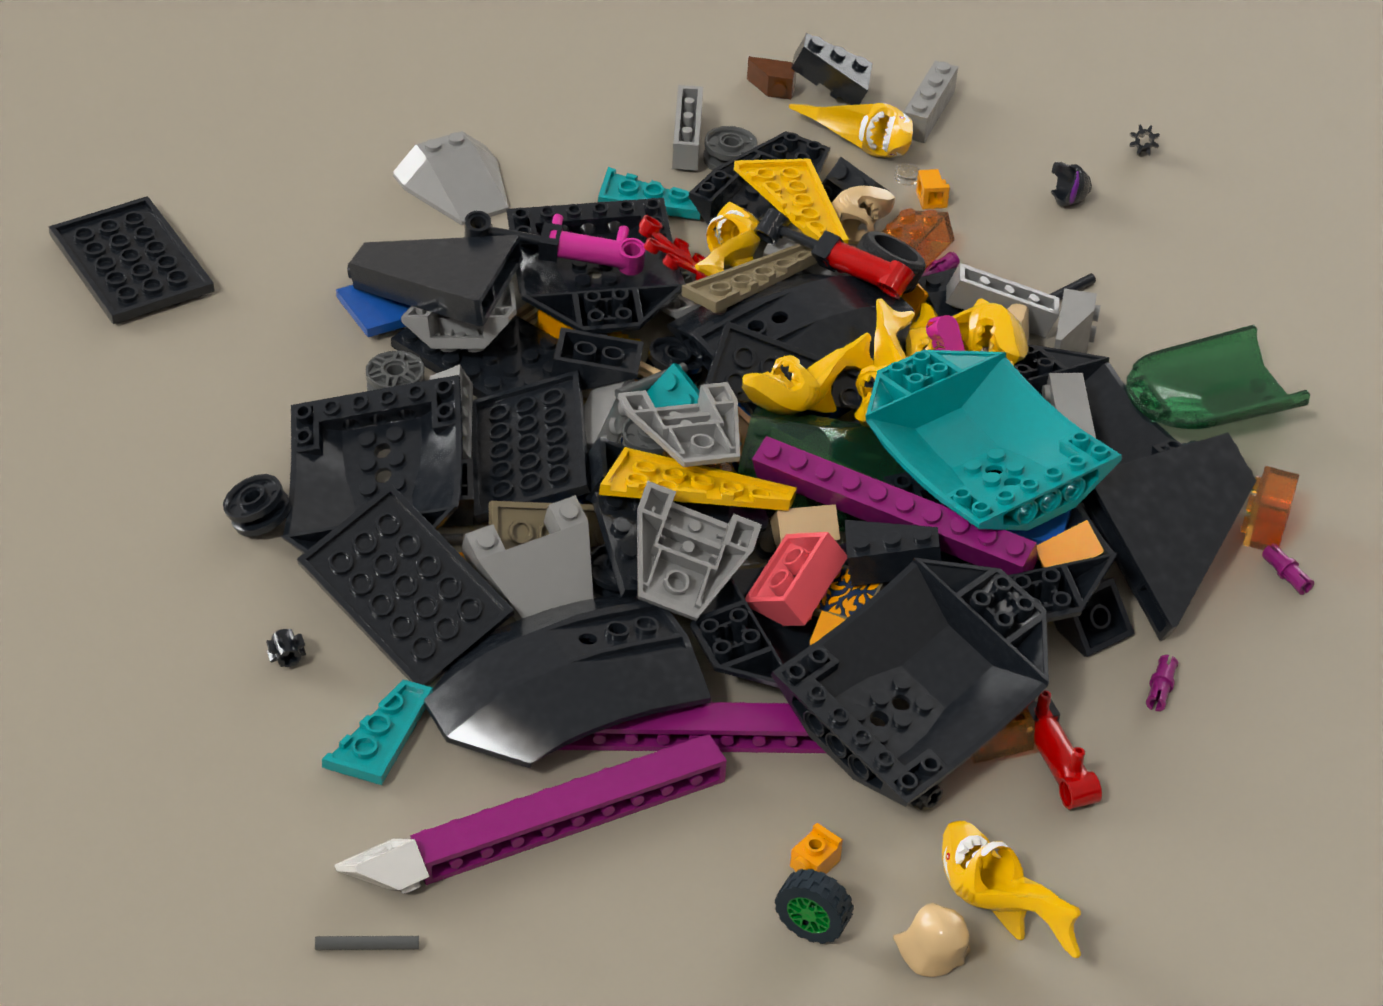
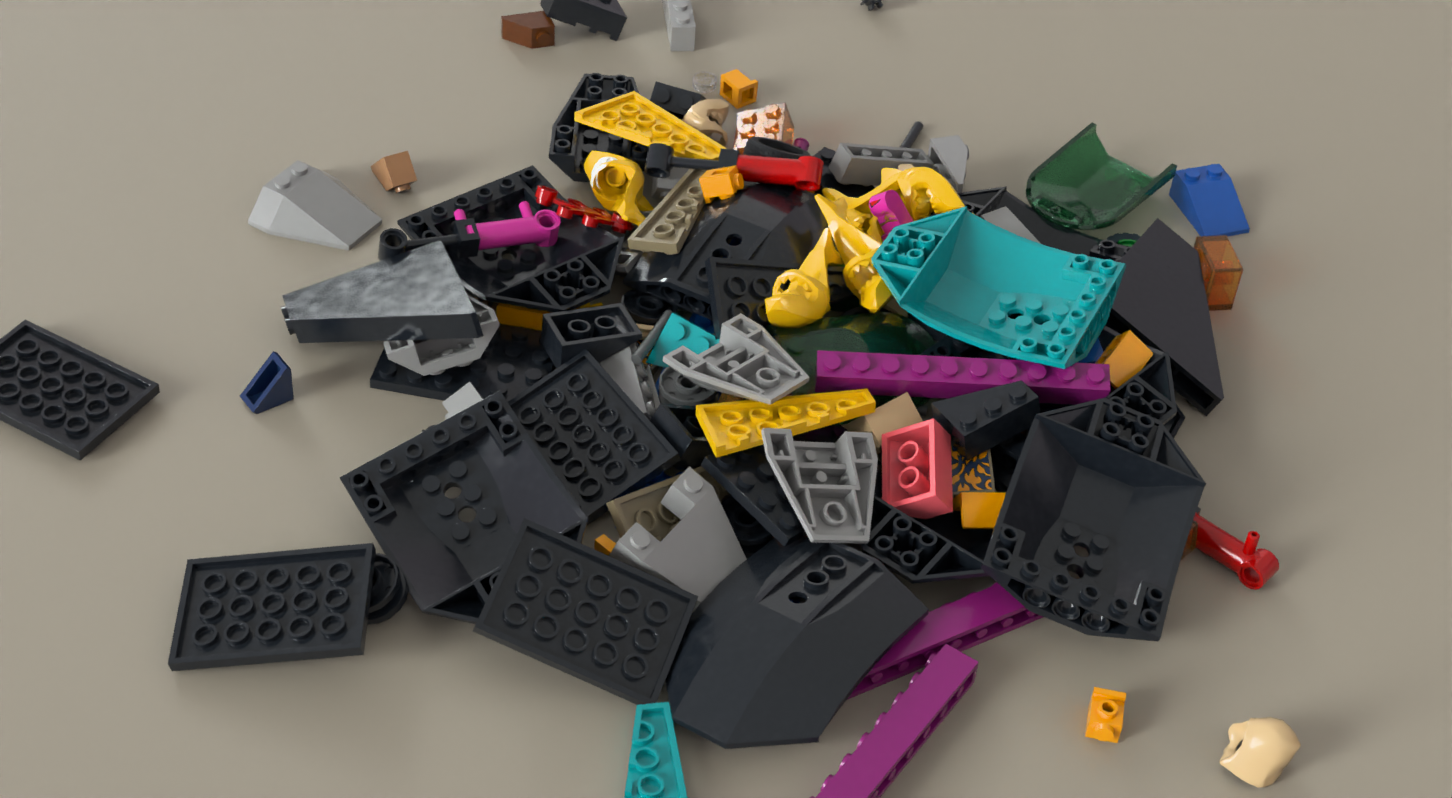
camera: 30 degrees left, 0 degrees up
(166, 489) = (273, 607): none -> black plate
(286, 648) = (504, 719): black gear -> none
(301, 316) = (269, 386): none -> dark blue slope
(372, 312) = (334, 360): blue tile -> none
(393, 369) = (403, 414): dark grey wheel -> none
(546, 168) = (395, 172): none -> medium nougat slope
(628, 187) = (478, 171): teal wing -> none
(687, 128) = (495, 96): light grey brick -> none
(726, 144) = (541, 104): dark grey wheel -> none
(806, 263) = (721, 183): none -> light orange brick
(814, 906) = (1153, 764): black wheel -> none
(874, 128) = (655, 49): yellow piece -> none
(999, 884) = (1263, 680): yellow piece -> none
(1072, 184) = (846, 49): black hair -> none
(1162, 683) = (1240, 451): magenta pin -> none
(1288, 569) = (1253, 318): magenta pin -> none
(1338, 444) = (1209, 201): none -> blue slope

